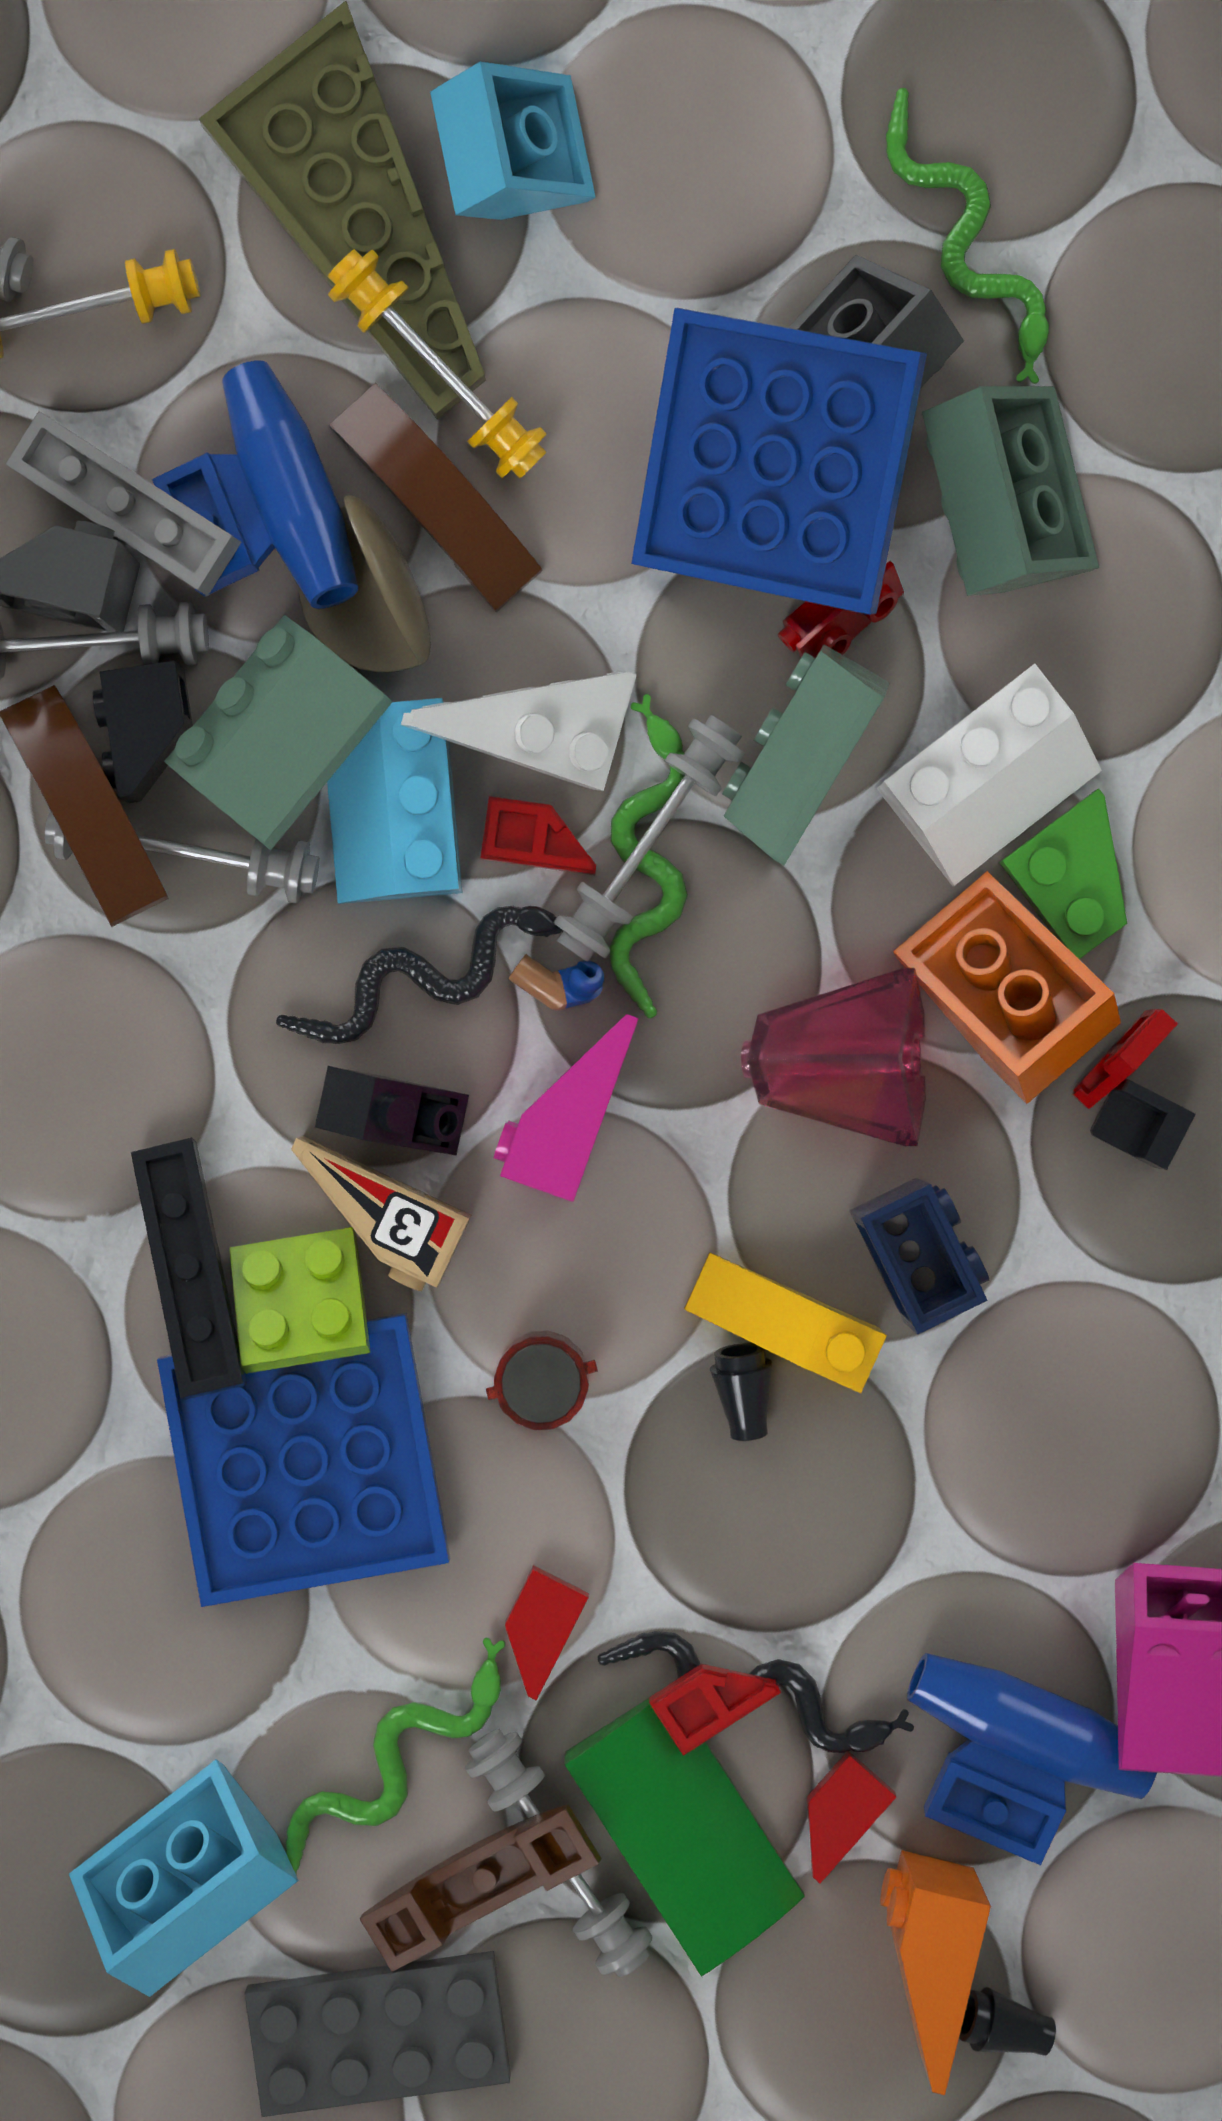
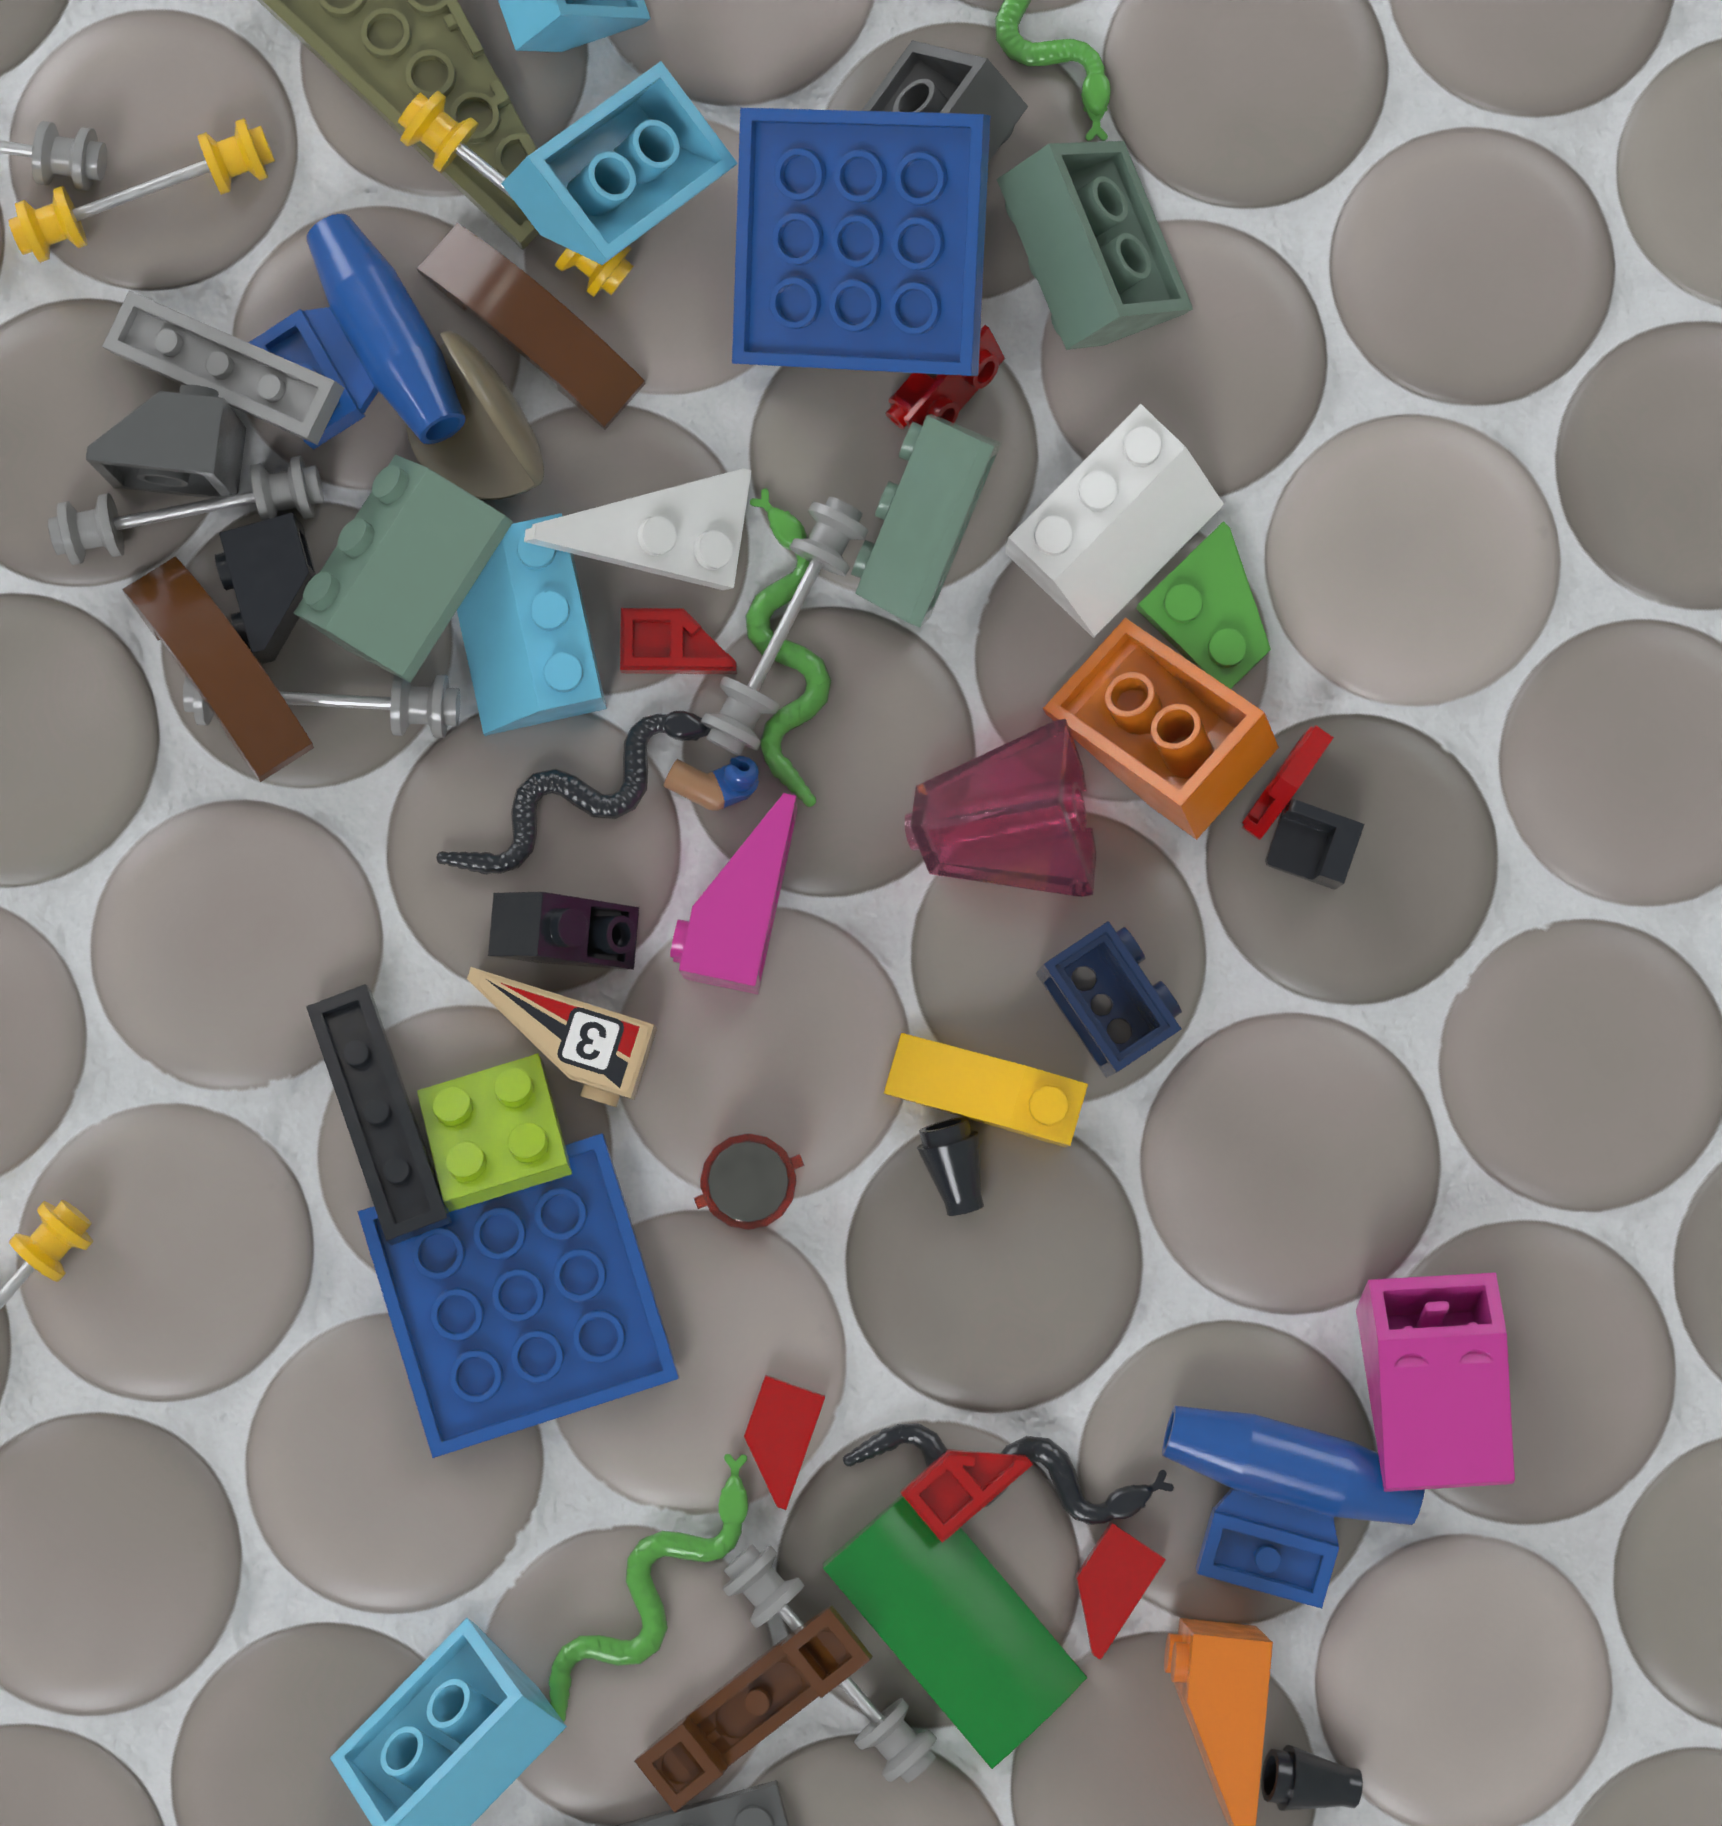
camera: 20 degrees left, 5 degrees down
(546, 354) = (620, 168): none -> medium azure slope

